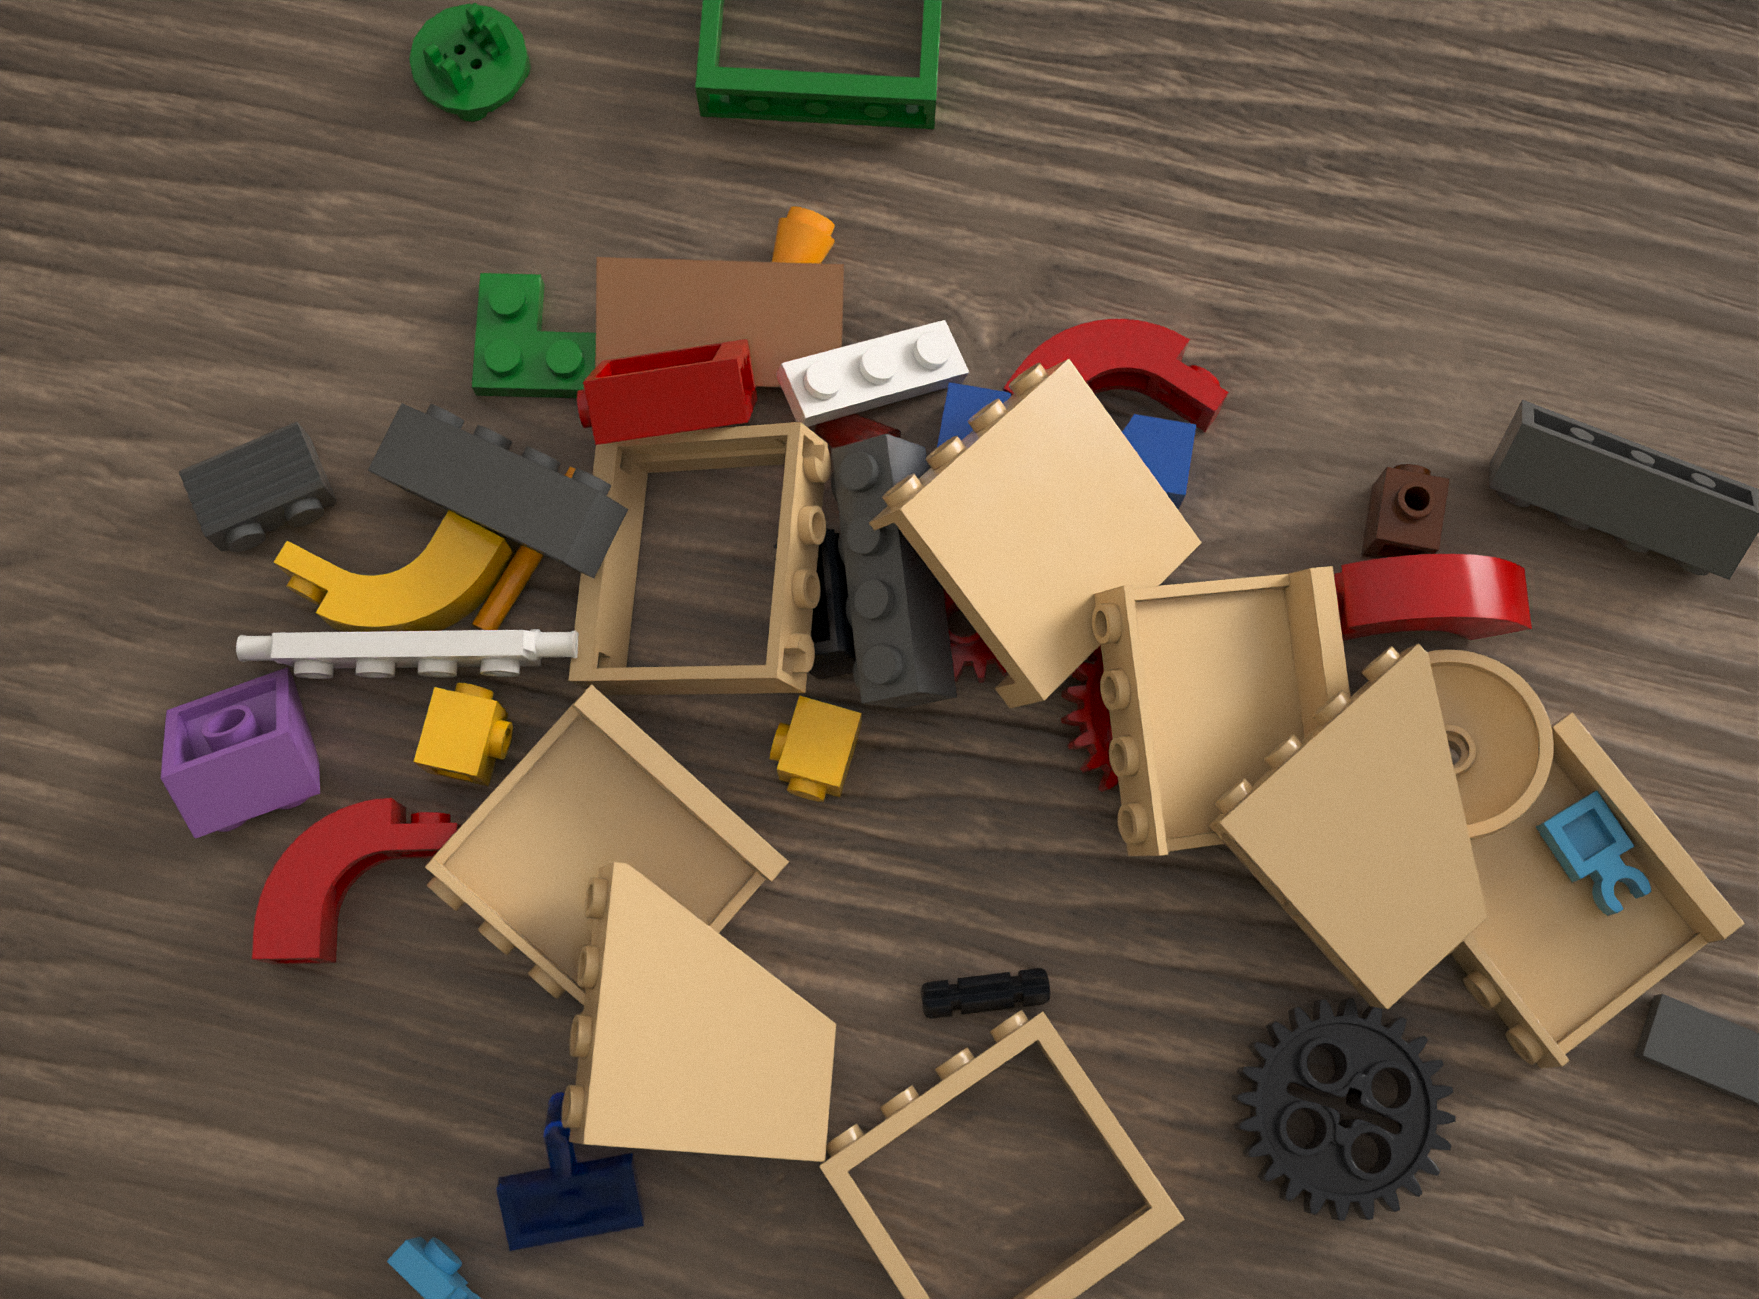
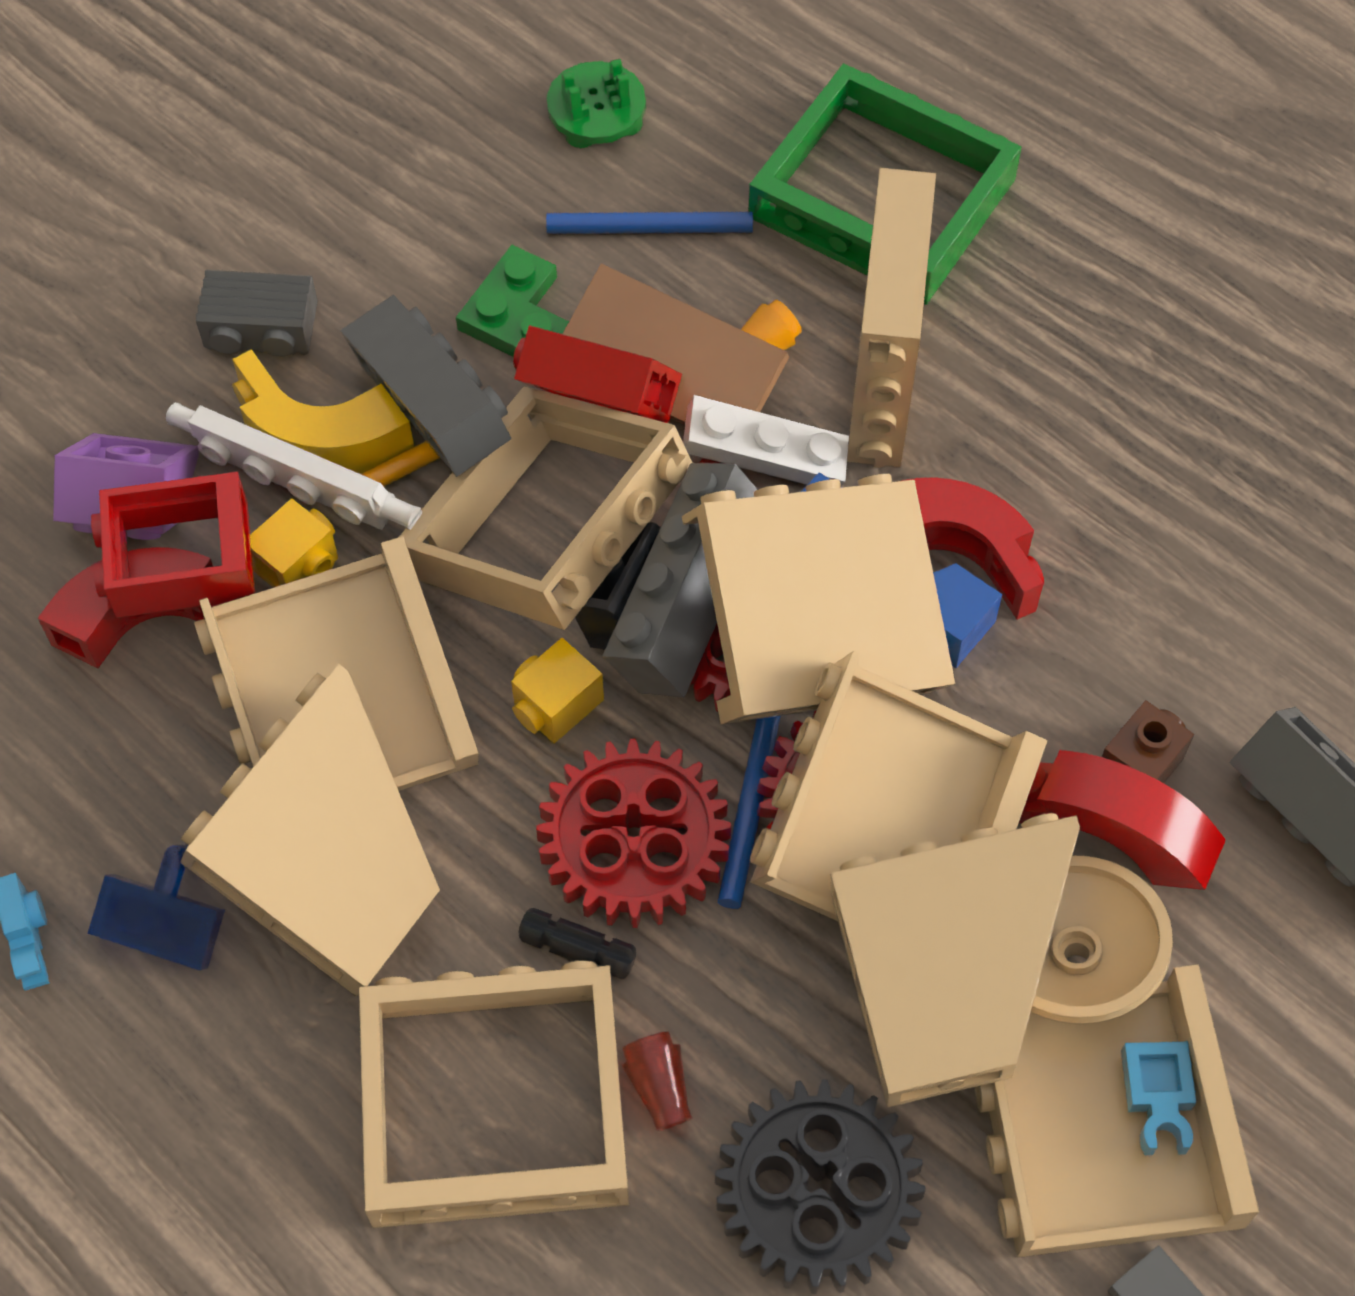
camera: 30 degrees right, 15 degrees down
(273, 799) = (166, 504): none -> red window
(605, 174) = (649, 222): none -> blue bar
(944, 179) = (891, 316): none -> tan window
(1008, 904) = (633, 881): none -> red gear
(1073, 787) = (746, 818): none -> blue bar
(1139, 1086) = (659, 1079): none -> clear red cone

